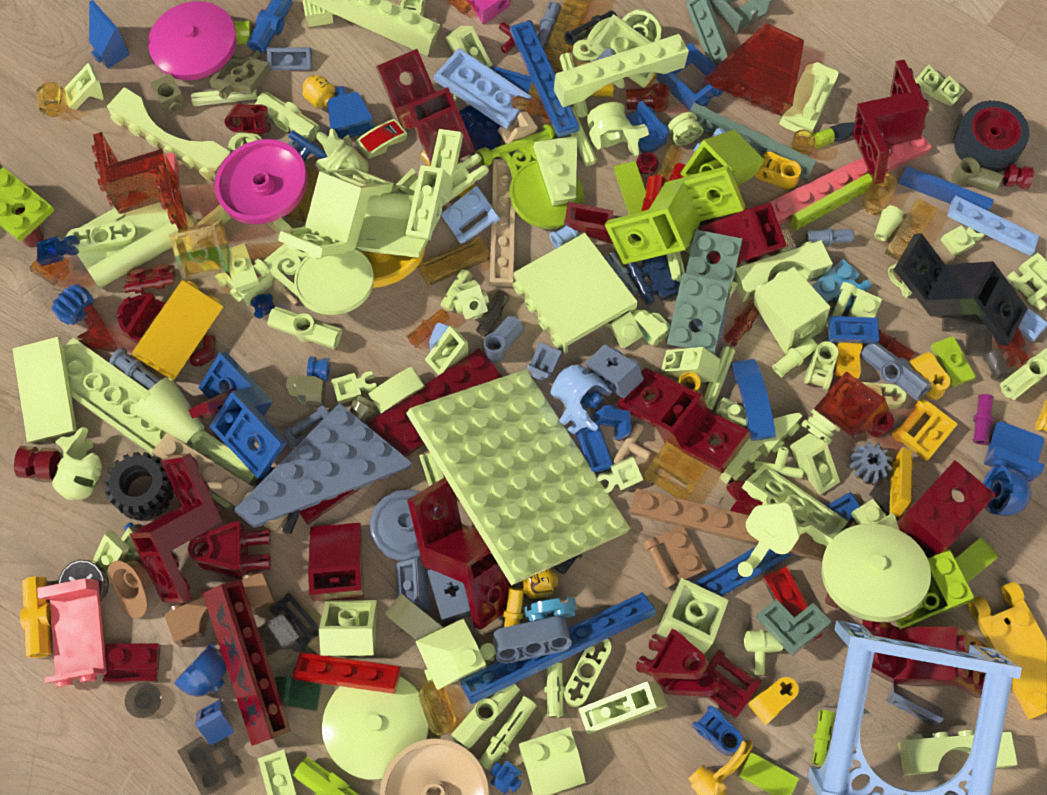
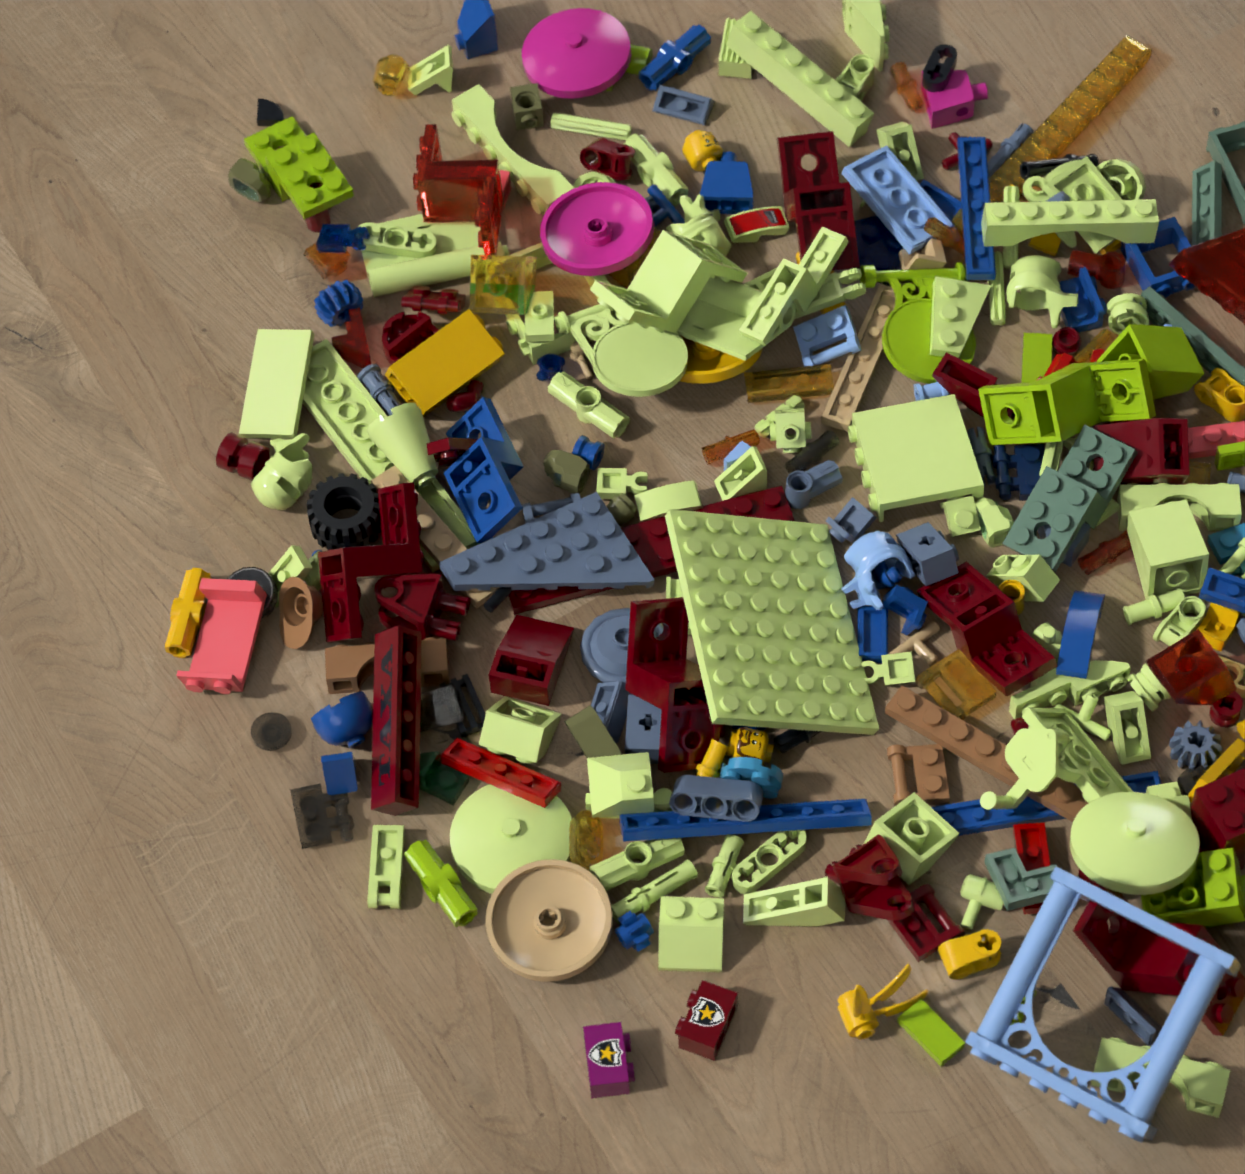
camera: 25 degrees right, 10 degrees down
(132, 662) = (272, 691): dark red plate -> none
(240, 75) = (618, 107): olive plate -> none
(714, 387) = (1056, 598): yellowish green axle -> none
(717, 730) = (888, 961): blue piece -> none

